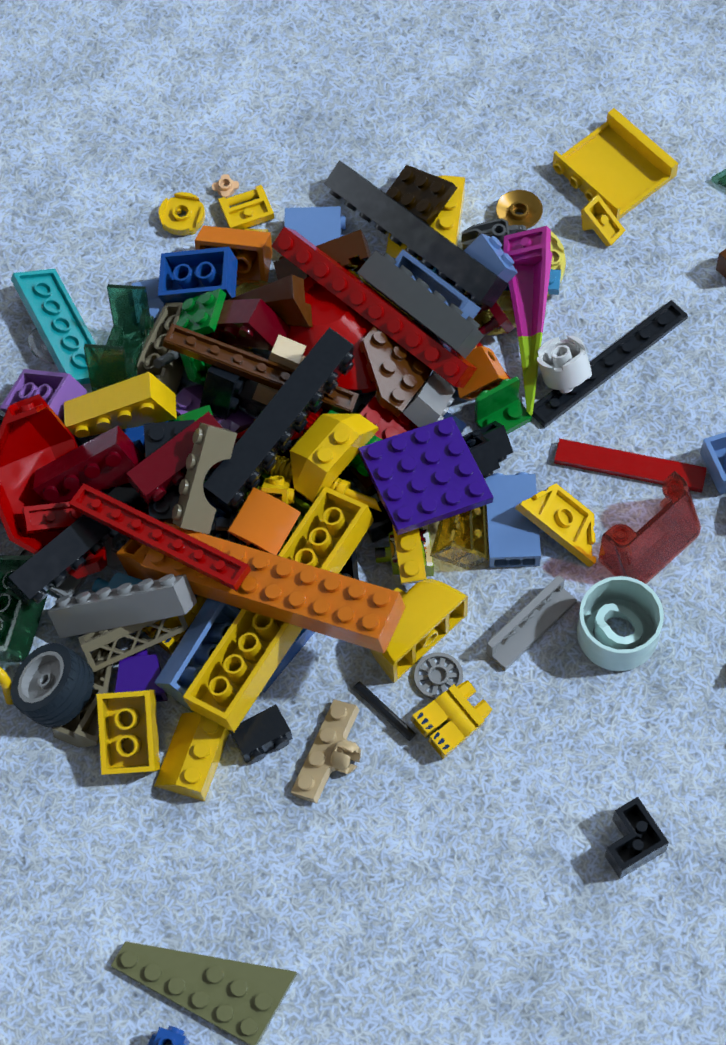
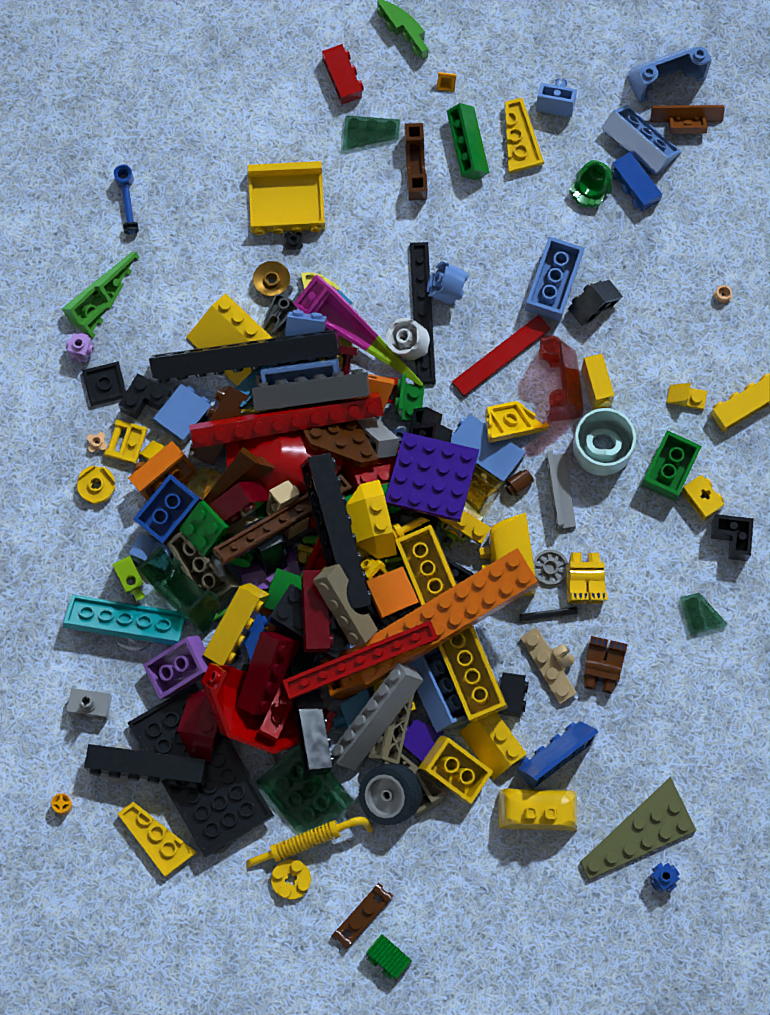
camera: 60 degrees left, 10 degrees up
(98, 298) = (125, 570): none -> lime torso
(152, 854) = (537, 809): none -> yellow hips
(224, 827) = (556, 754): none -> blue slope
(290, 154) = (104, 383): none -> black tile
(299, 184) = (143, 392): none -> black brick
(306, 107) = (82, 352): none -> lavender brick
(357, 89) = (88, 307): none -> bright green wedge
(372, 806) = (603, 670): none -> reddish brown hips
(421, 193) = (213, 328): dark brown plate -> none
(504, 577) = (519, 482): none -> reddish brown brick
(506, 30) = (130, 226): none -> blue piece
(514, 871) = (700, 614): none -> clear green wing
(575, 207) = (293, 245): none -> black plate
(599, 217) = (324, 238): yellow slope -> none
(652, 760) = (704, 507): none -> yellow brick
(656, 355) = (447, 283): none -> medium blue brick
(656, 714) = (671, 466): none -> green brick
(682, 570) = (597, 382): none -> yellow brick

